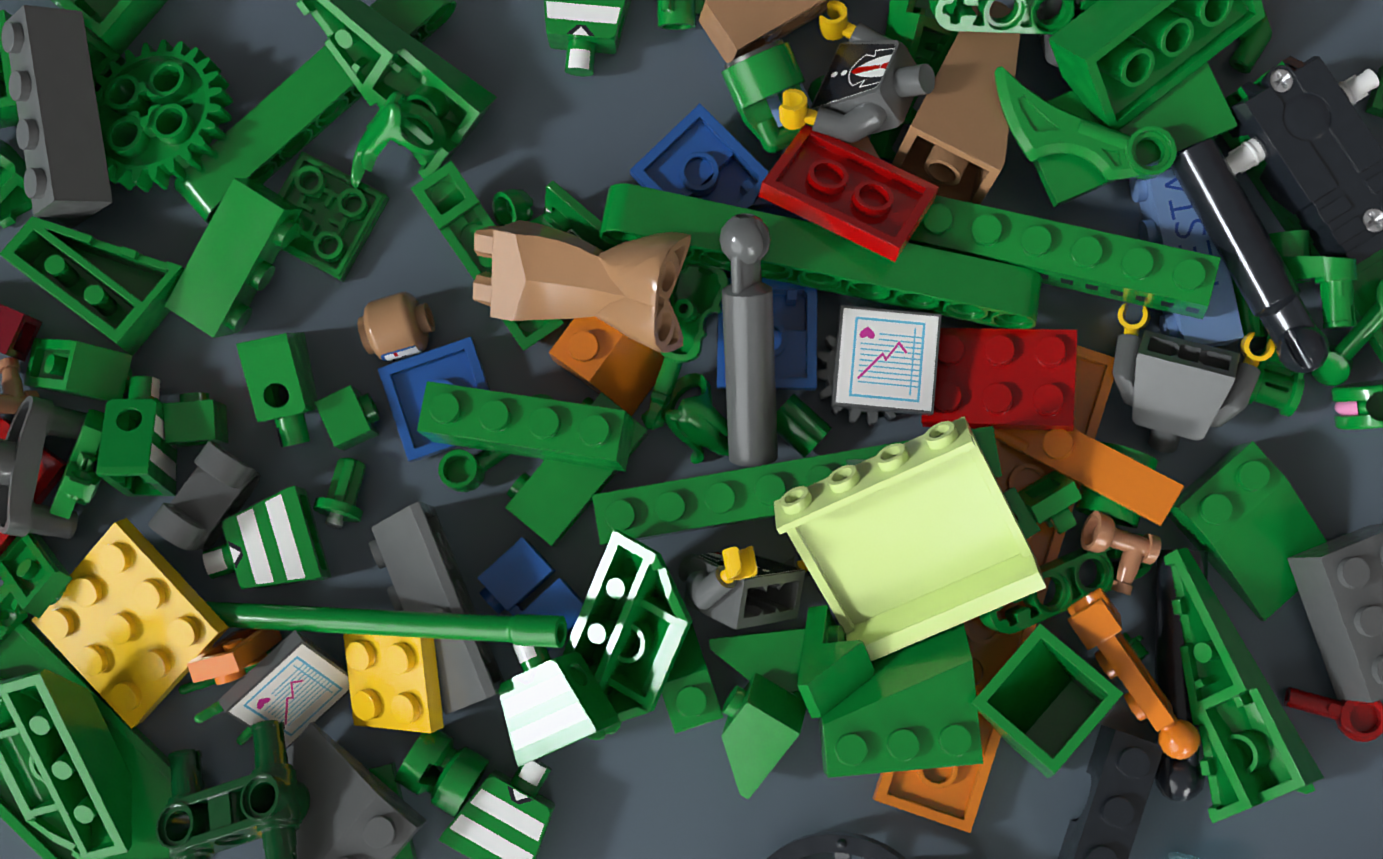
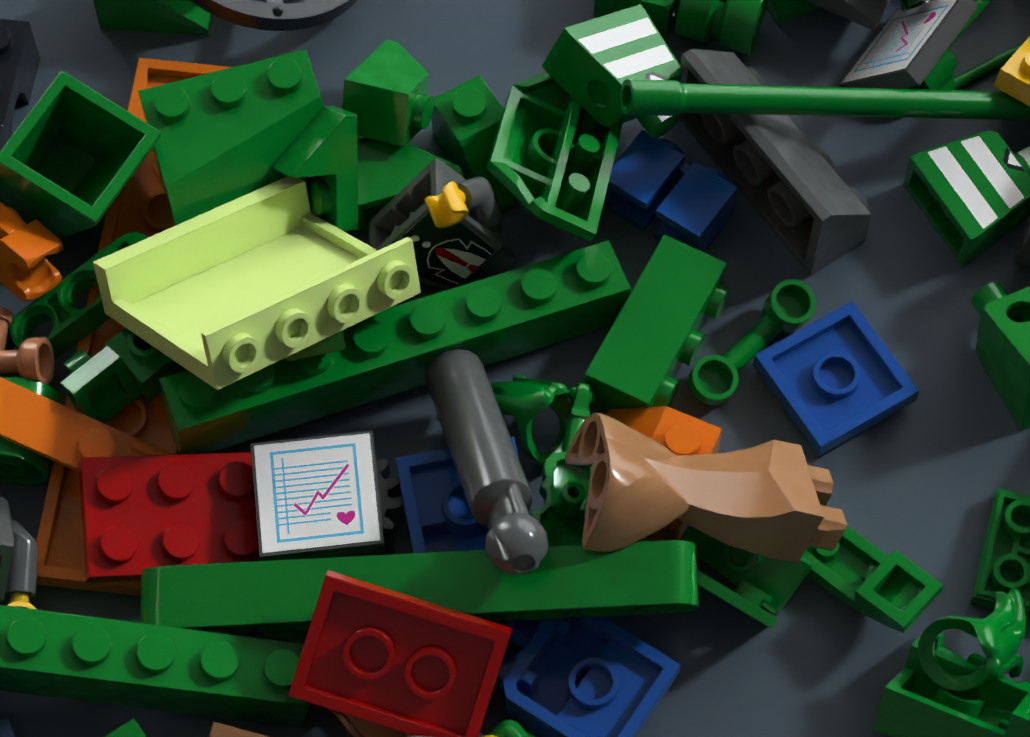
camera: 170 degrees right, 20 degrees down
(232, 654) = (981, 52): orange plate -> none
(342, 493) = (916, 257): green piece -> none
(349, 417) = (936, 334): green plate -> none
(393, 682) = (795, 60): yellow plate -> none
(395, 326) = (912, 441): medium nougat head -> none
(512, 206) = (812, 610): green hinge -> none
(526, 426) = (724, 334): green brick -> none
(800, 425) = (405, 428): green piece -> none

